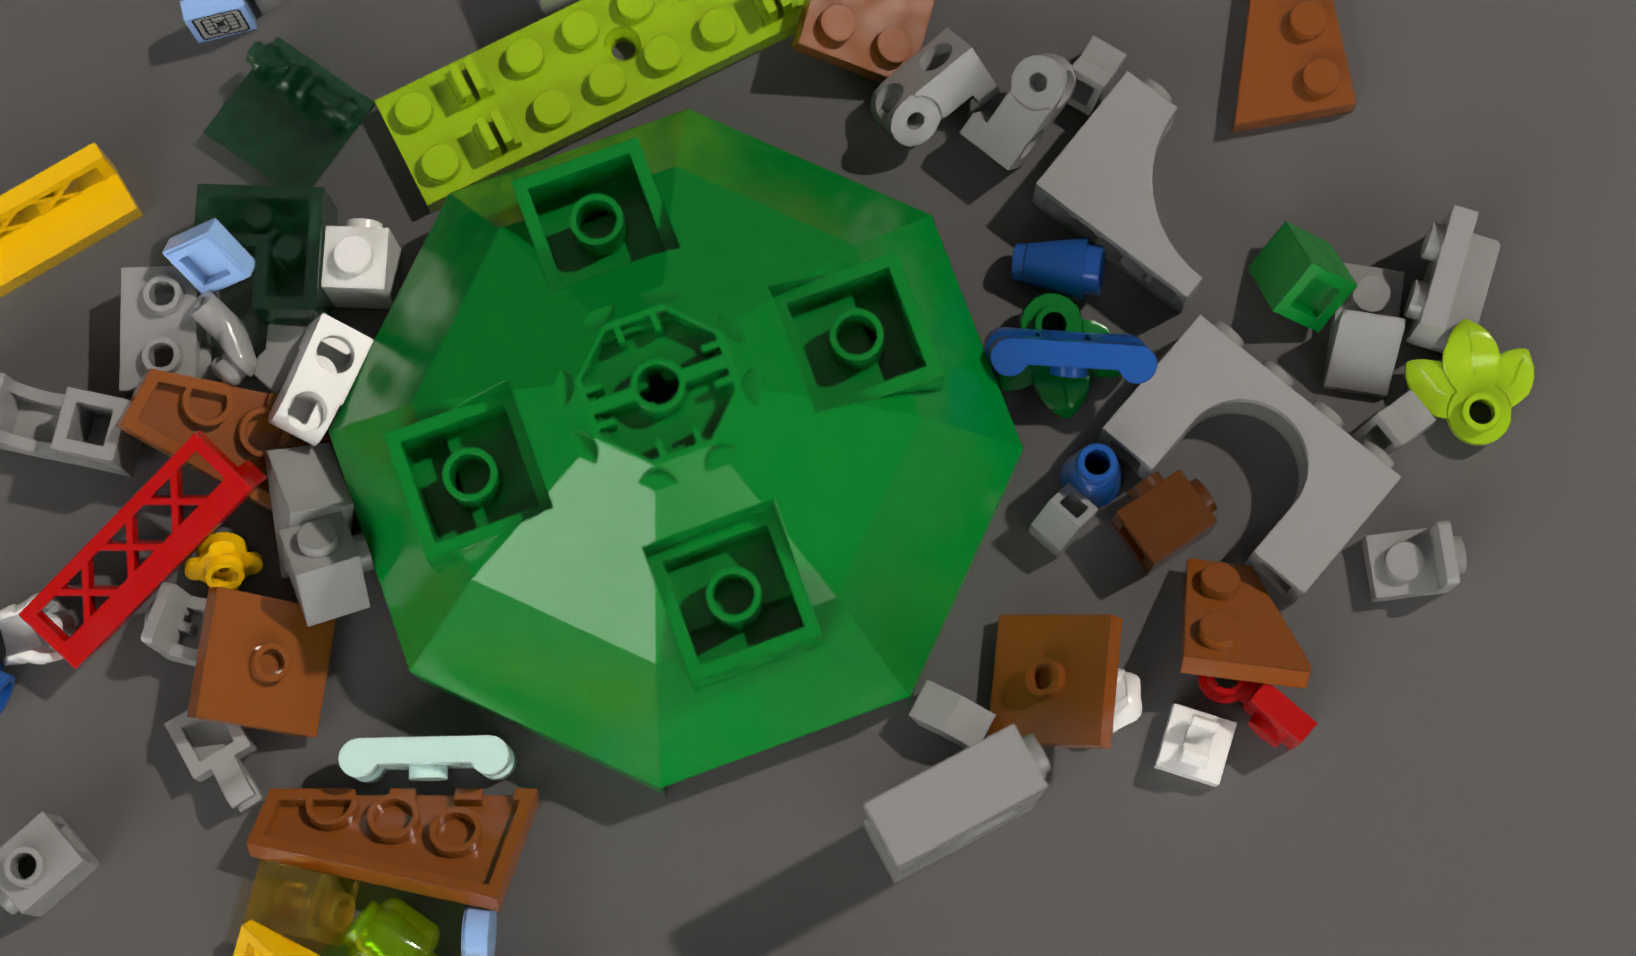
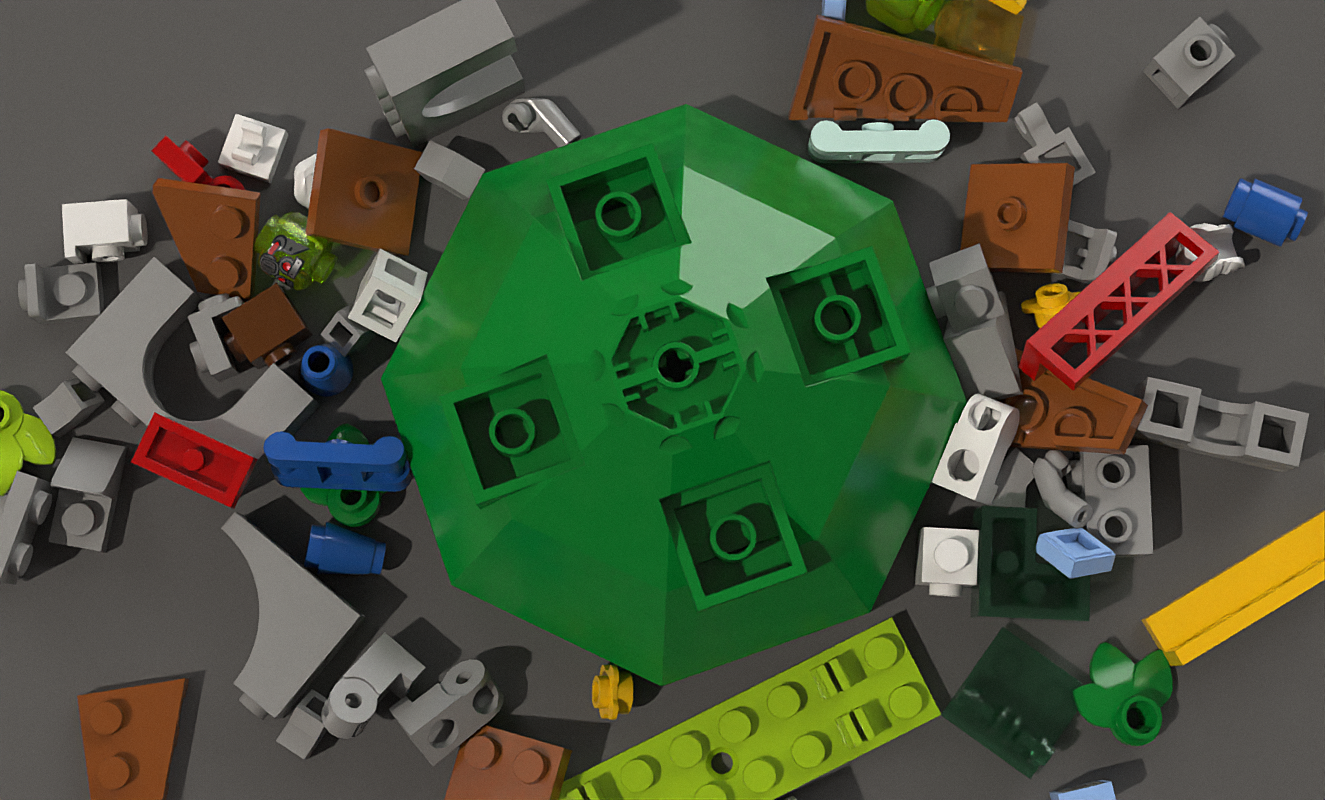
camera: 175 degrees right, 5 degrees up
(165, 137) = (1125, 686): none -> green plate
(747, 111) = (612, 692): none -> yellow plate
(841, 789) = (540, 116): none -> light grey arm
(1018, 555) = (388, 295): none -> white brick
(1144, 605) = (291, 254): none -> clear neon green head
(1234, 513) = (210, 348): none -> light grey bracket
(1237, 345) = (194, 460): none -> red plate
(1302, 277) = (136, 538): green panel -> none
(1370, 634) = (102, 230): none -> white brick

